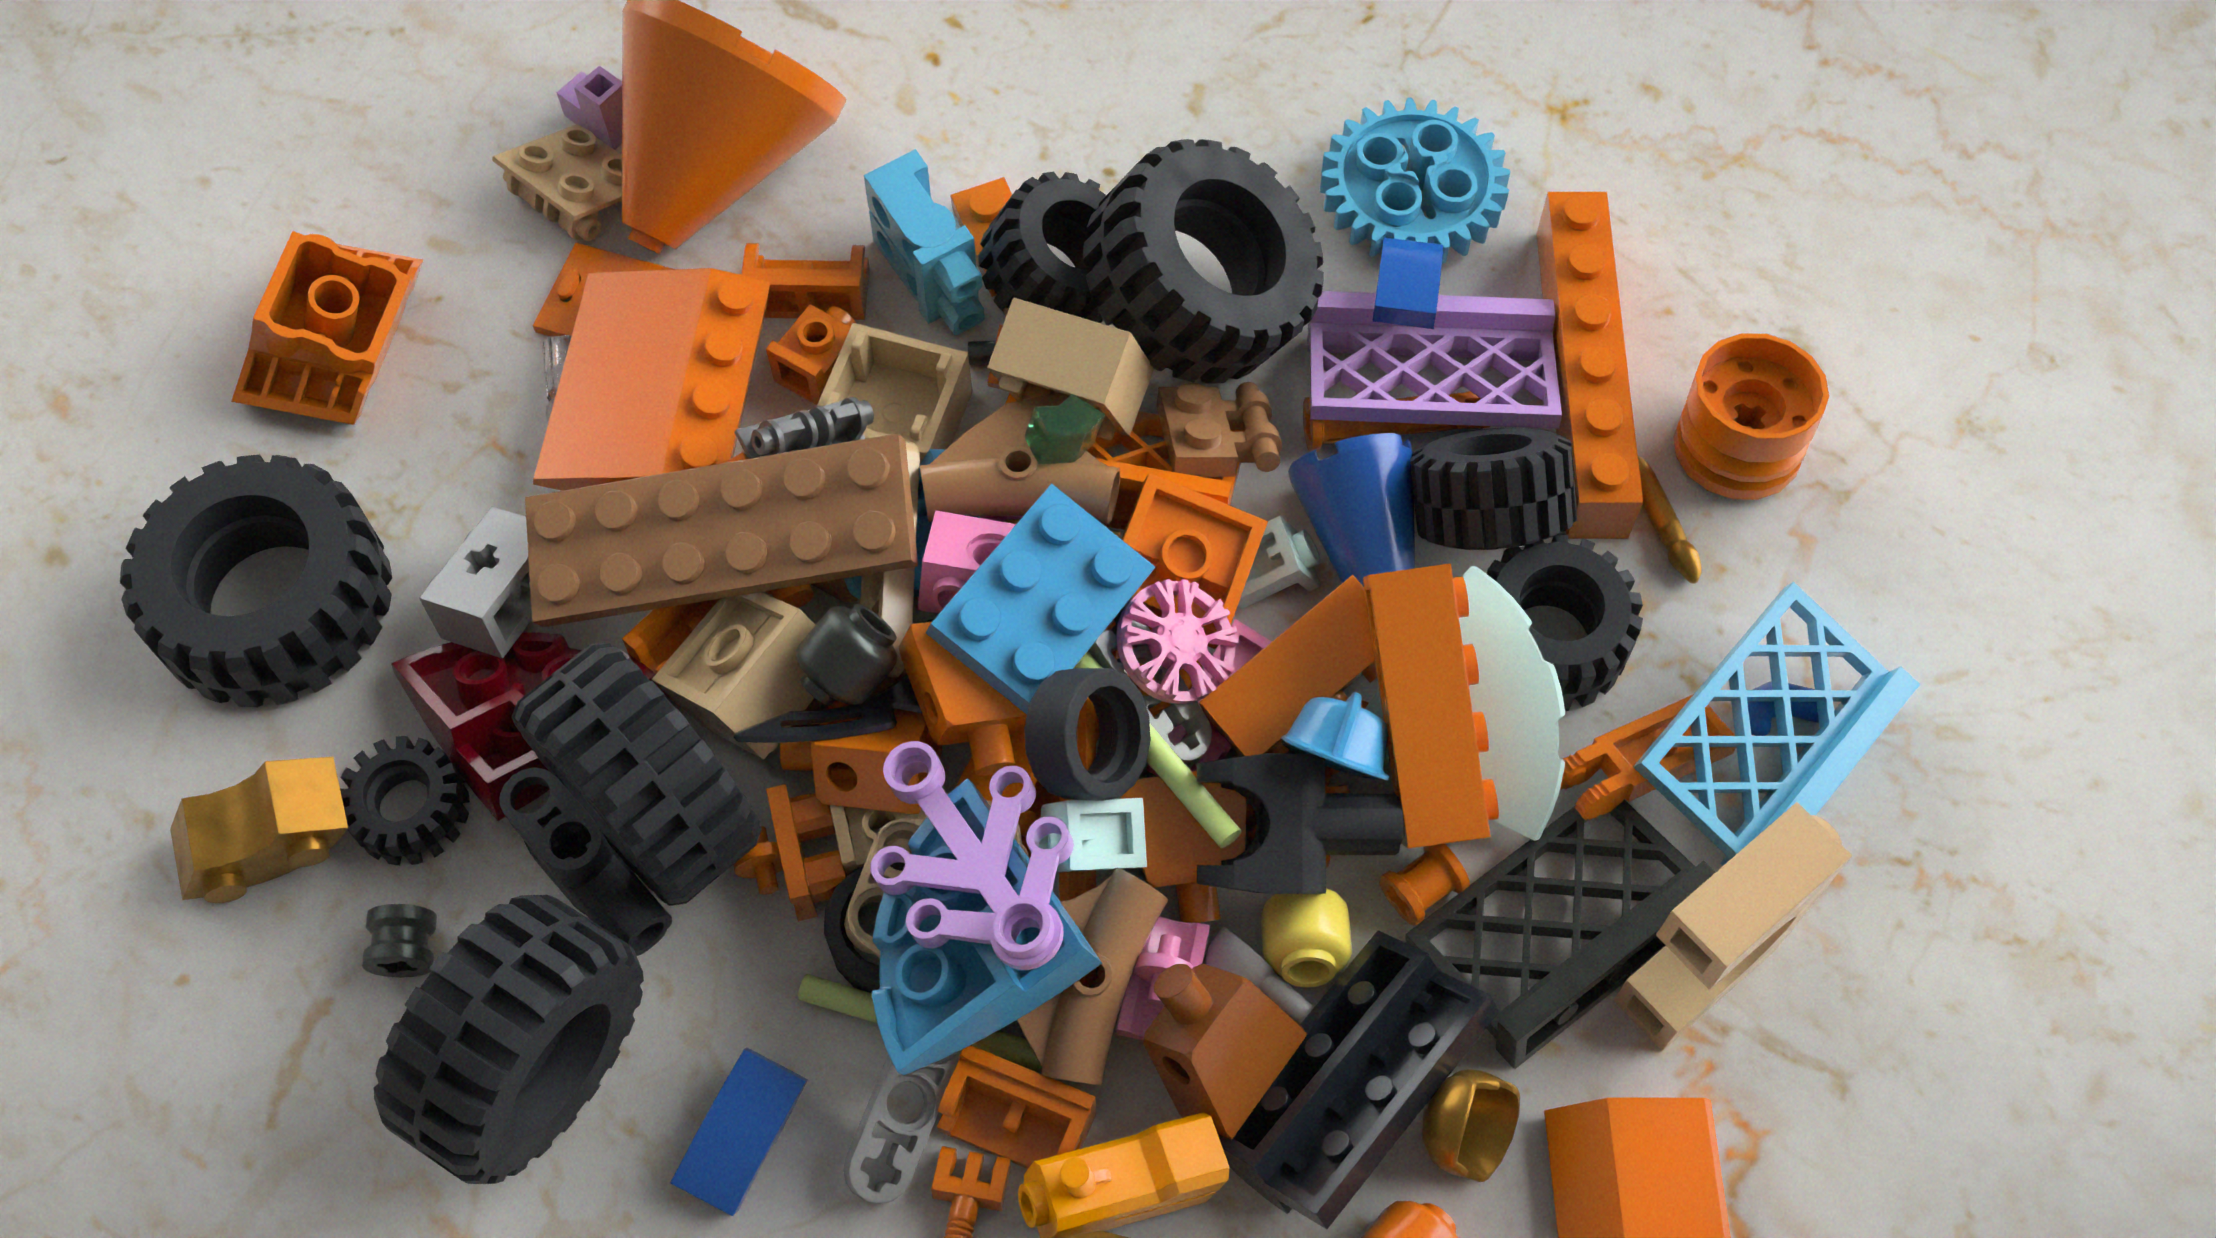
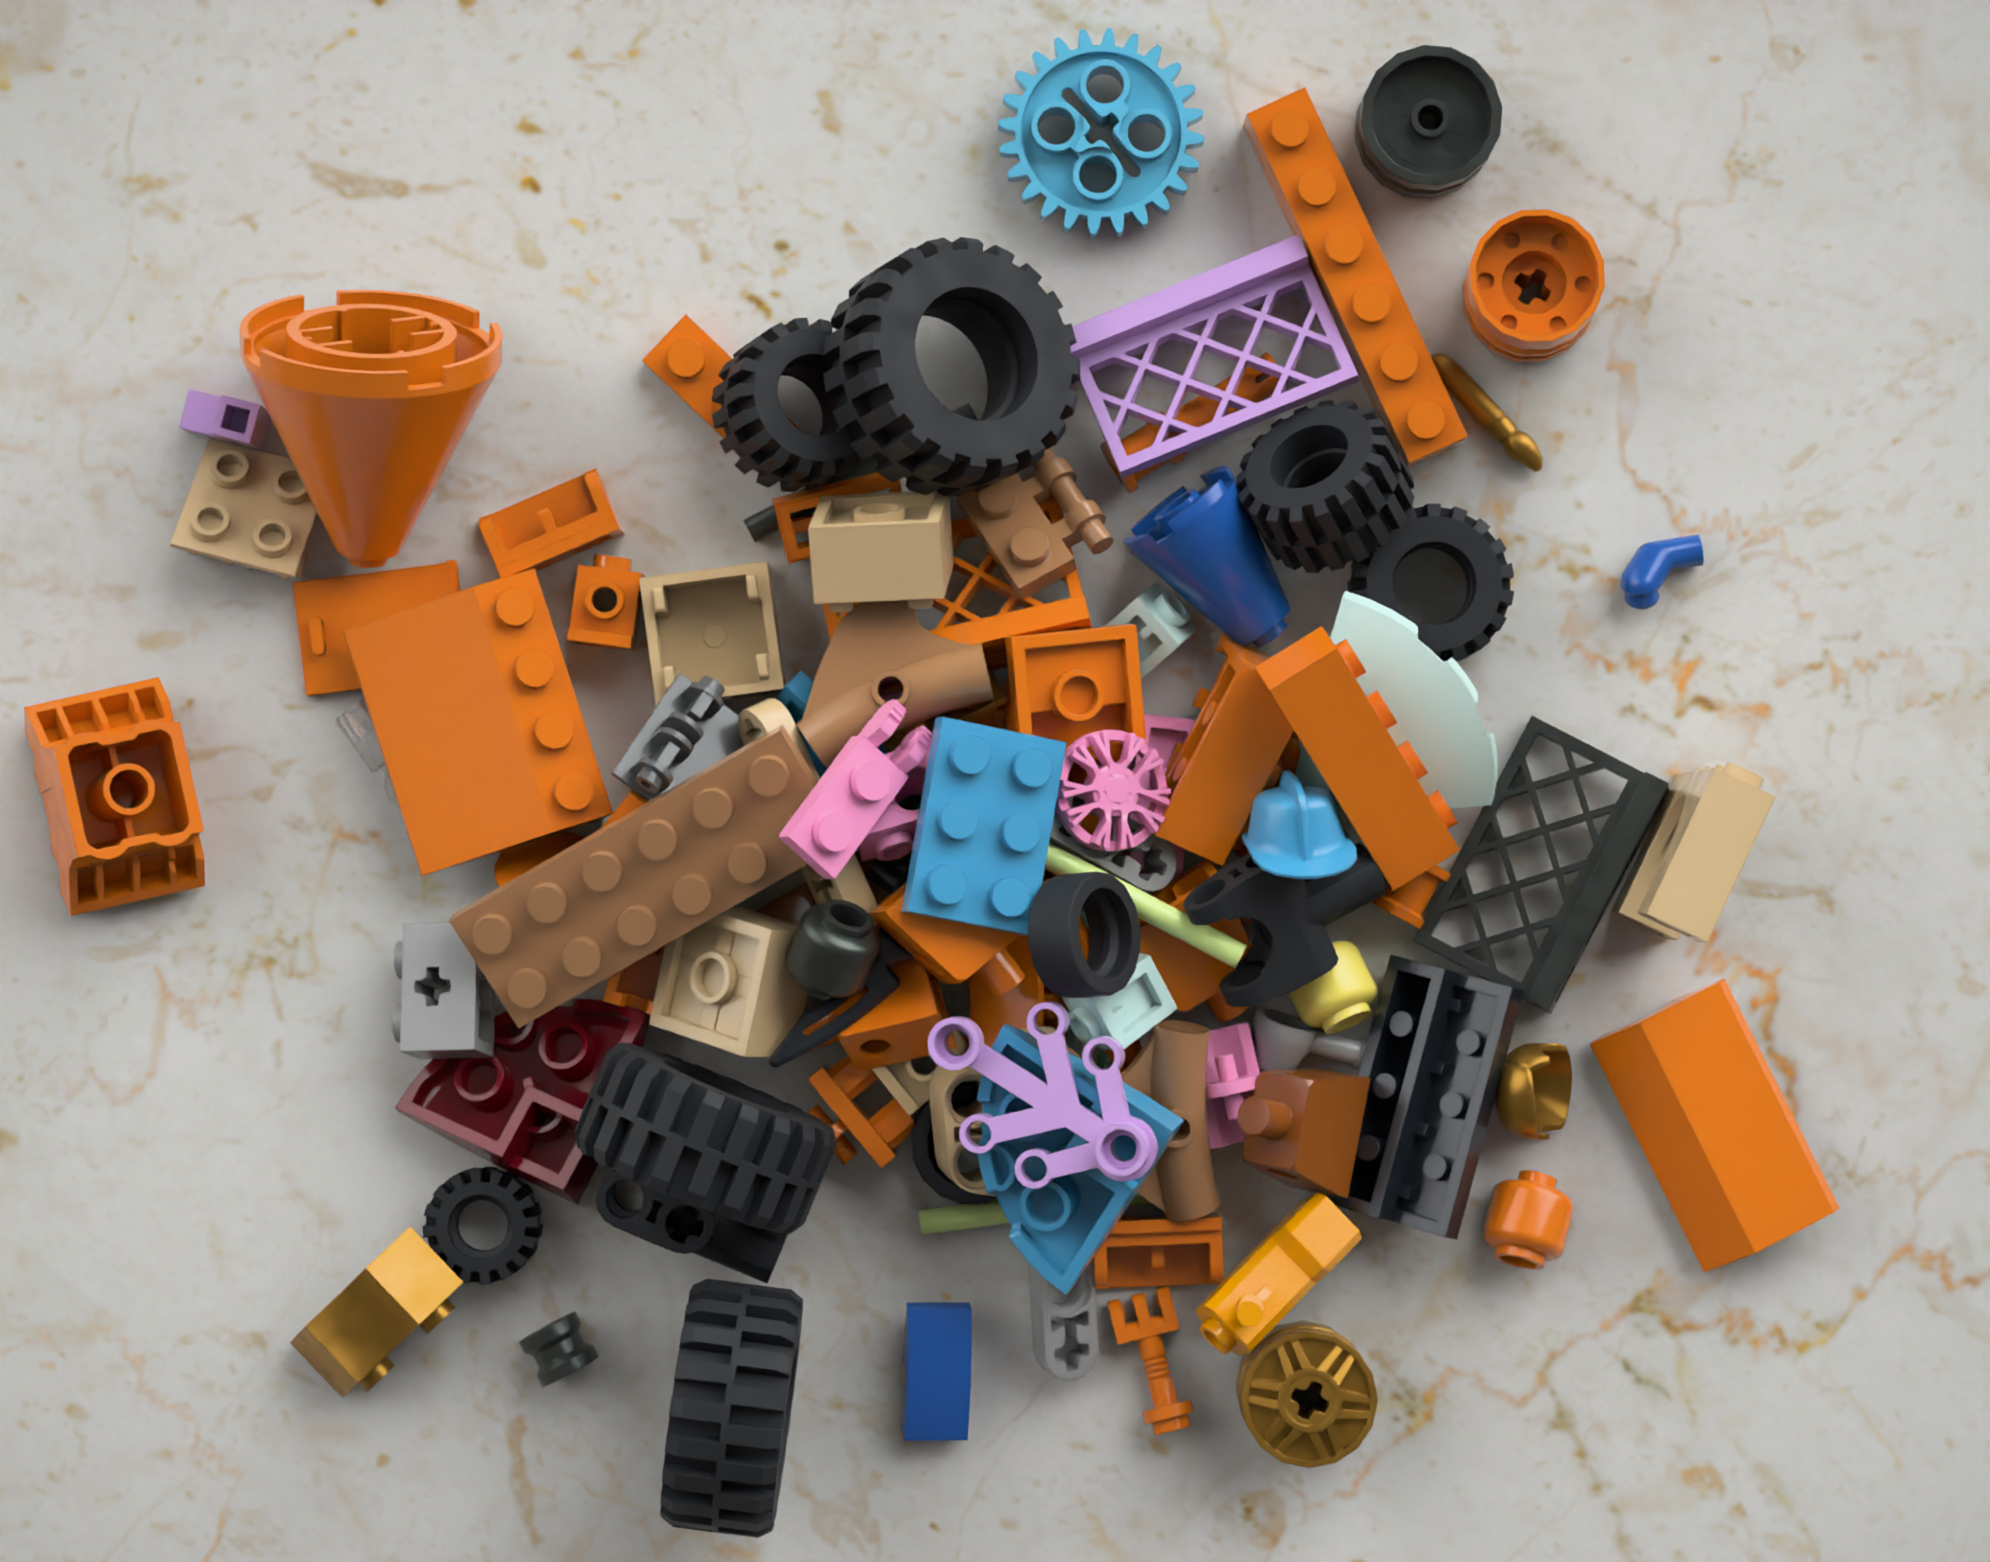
camera: 25 degrees left, 25 degrees up
(219, 523) = (145, 1111): black tyre -> none
(924, 244) = (659, 453): medium azure hips -> none
(933, 517) = (854, 792): none -> bright pink hinge
(1063, 431) = (919, 642): clear green piece -> none
(1408, 283) = (1152, 284): blue slope -> none
(1622, 748) = (1563, 674): orange hinge -> none
(1703, 266) = (1422, 160): none -> pearl dark grey wheel
(1826, 756) = (1715, 623): medium azure fence -> none

